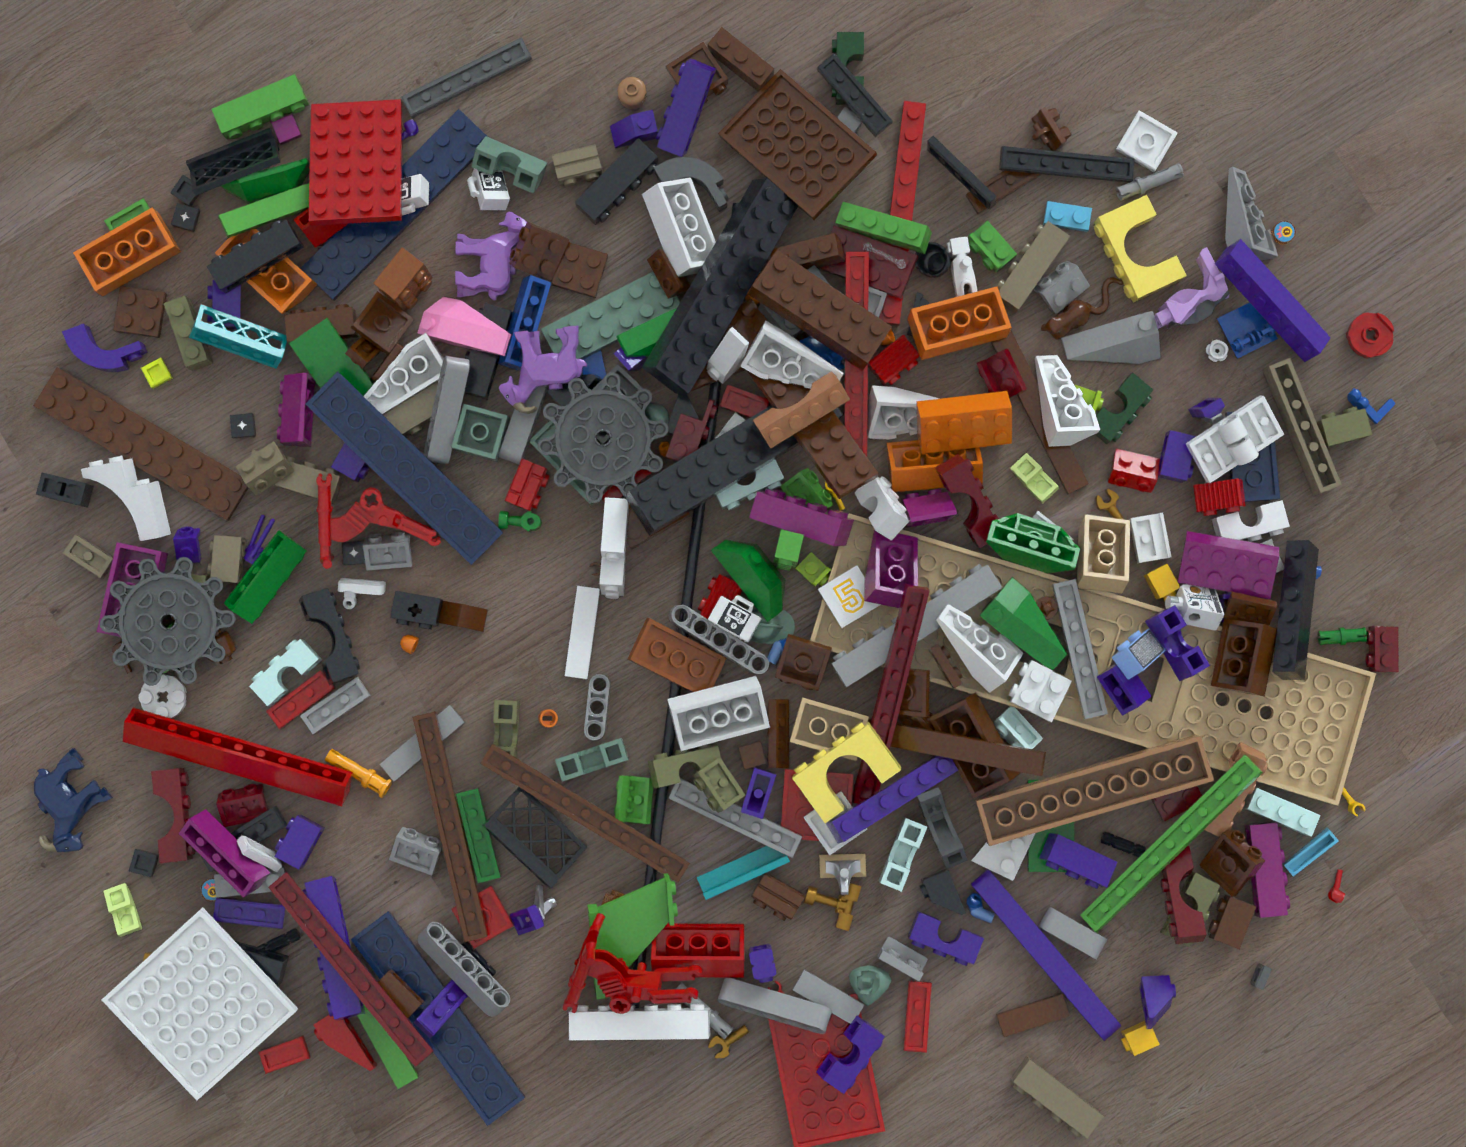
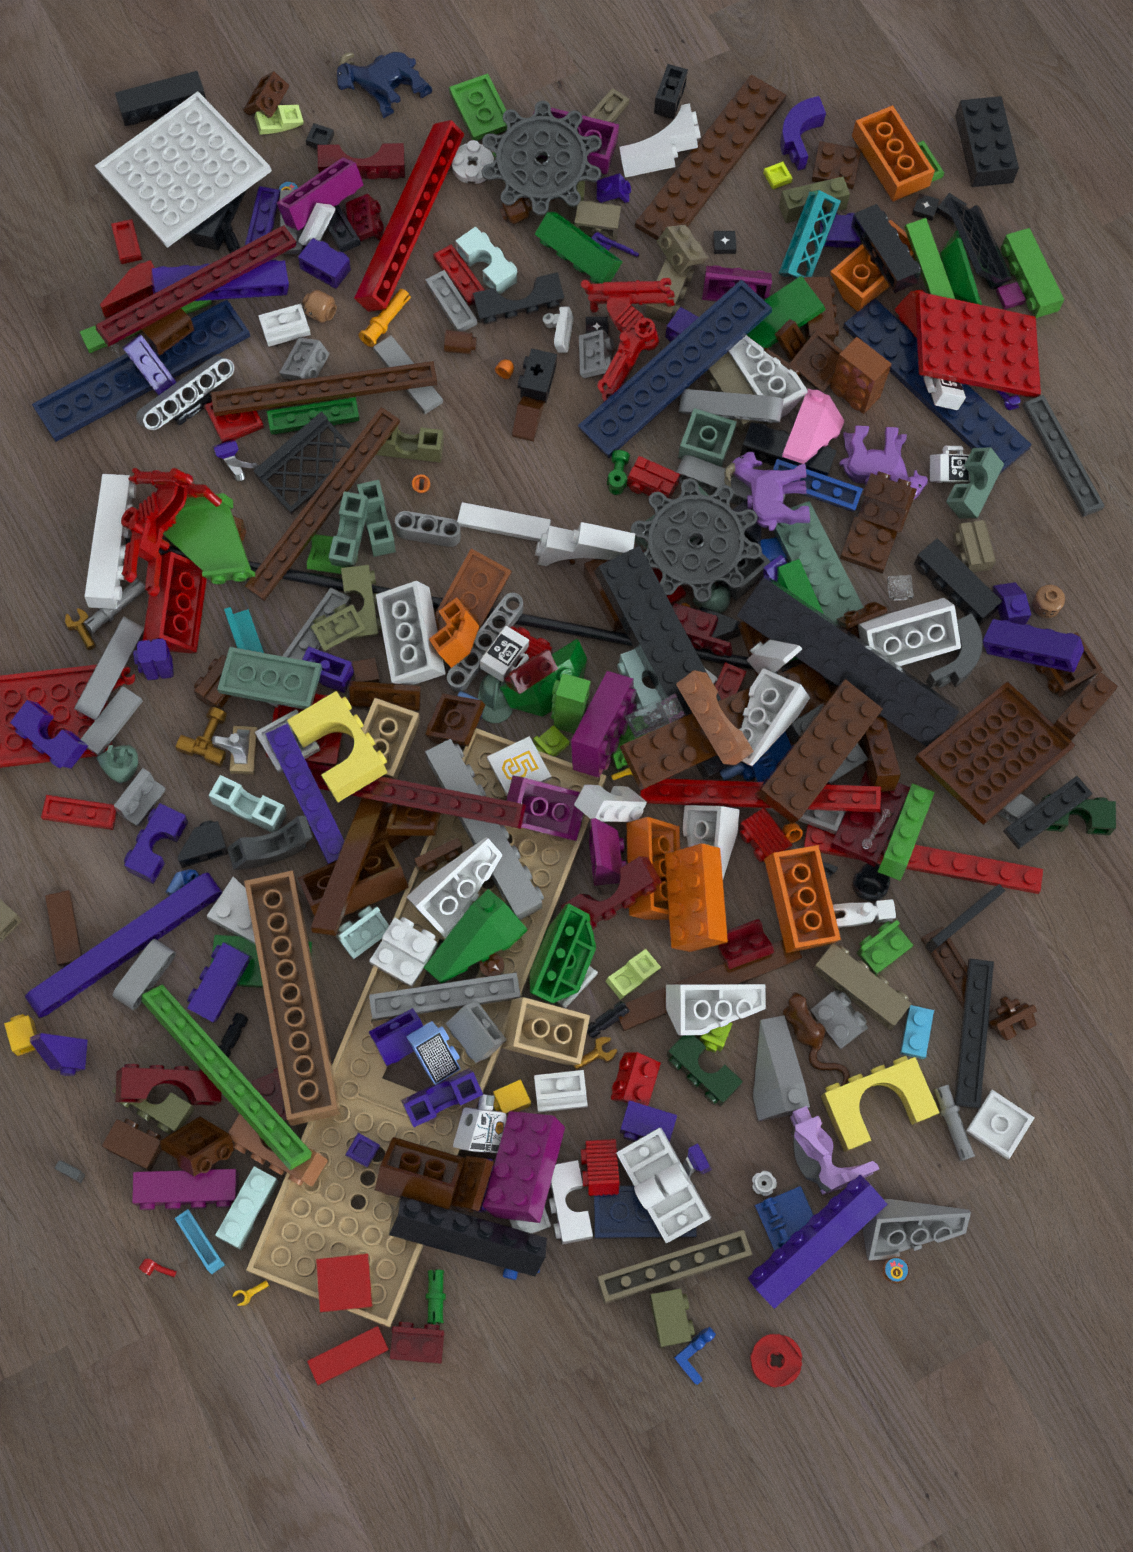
camera: 90 degrees right, 15 degrees down
(94, 693) = (479, 106): none -> bright green plate
(96, 926) = (267, 95): none -> reddish brown bracket
(103, 153) = (986, 141): none -> black brick
(107, 1041) = (157, 98): none -> black brick
(350, 842) = (319, 306): none -> medium nougat head
(375, 876) = (284, 325): none -> white plate
(383, 692) = (459, 342): none -> reddish brown brick
(617, 783) = (352, 521): none -> sand green arch
(624, 237) = (900, 587): none -> clear plate
(726, 665) = (457, 637): none -> orange brick
(757, 591) = (531, 672): none -> dark red bracket
(780, 845) = (269, 678): none -> sand green plate
(794, 468) = (655, 715): none -> clear brick
(1080, 498) = (607, 1019): none -> black axle
(1113, 616) = (476, 1031): none -> light grey brick
(1225, 711) = (362, 1150): none -> dark purple tile
(1343, 716) = (344, 1283): none -> red tile
(1397, 709) = (347, 1355): none -> red tile

